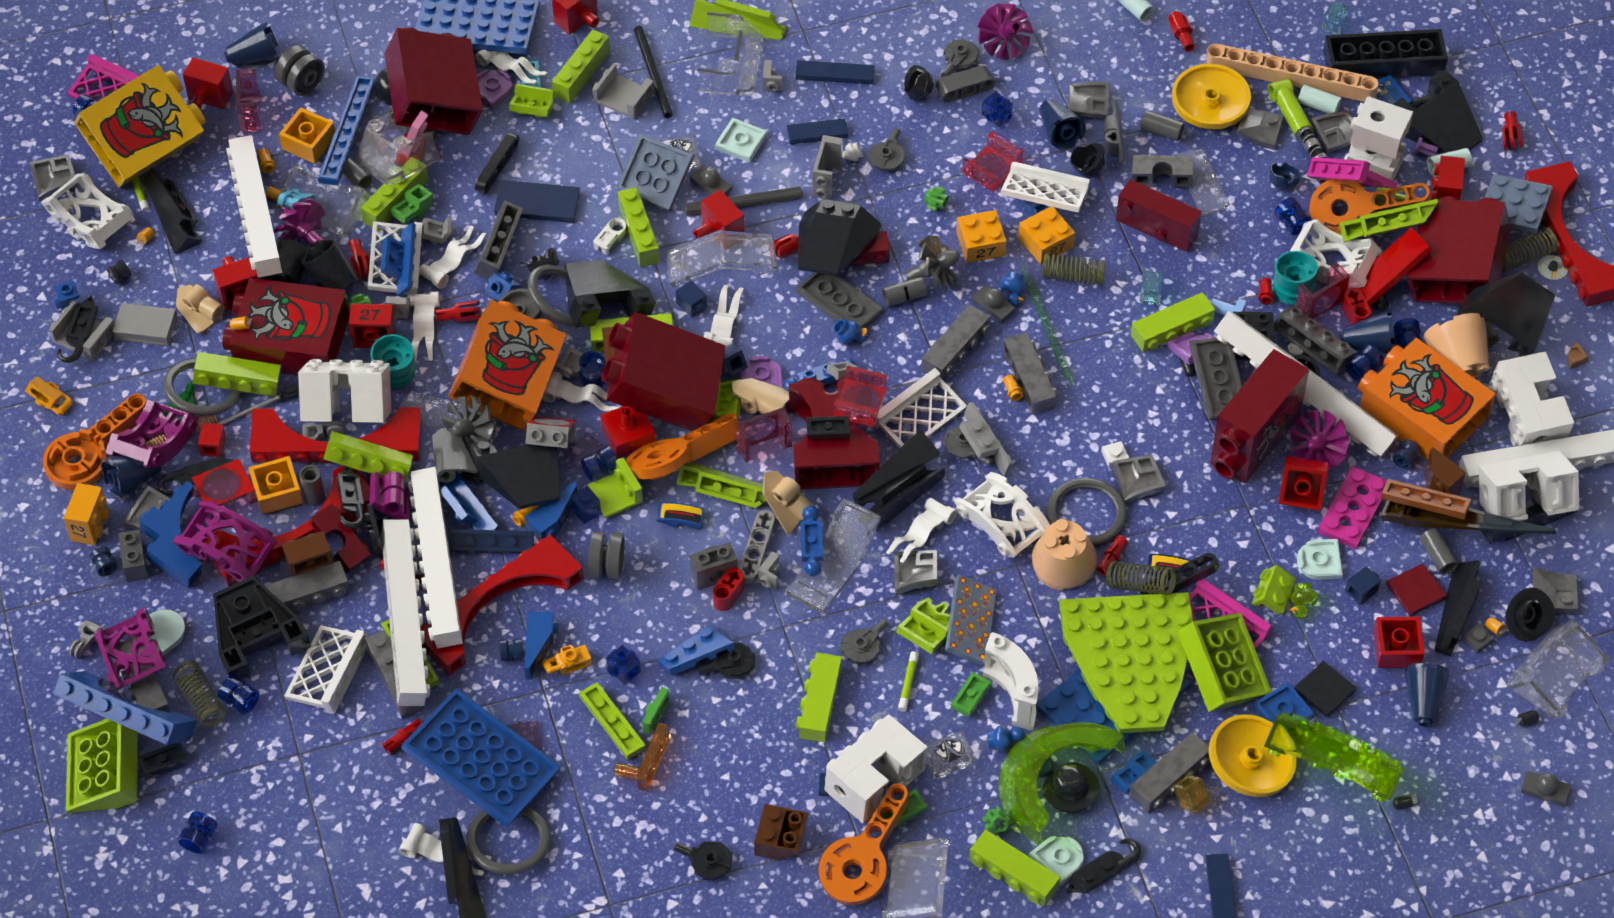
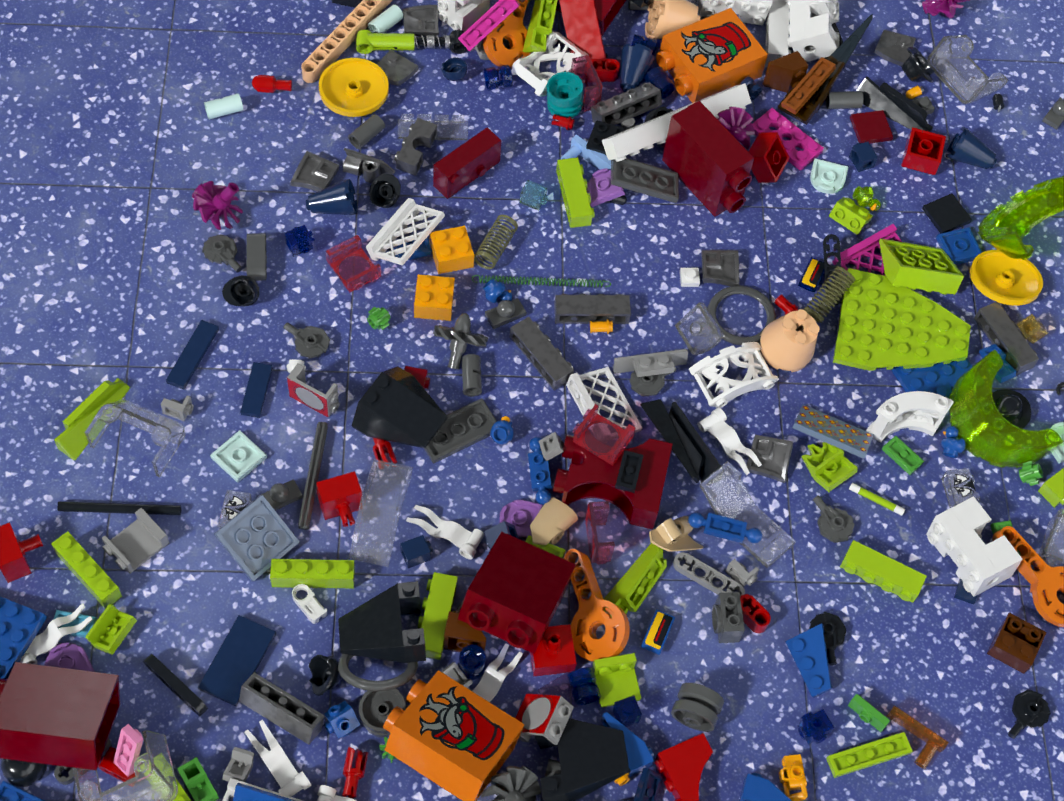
camera: 80 degrees left, 5 degrees up
(1044, 472) = (699, 330): none -> clear brick

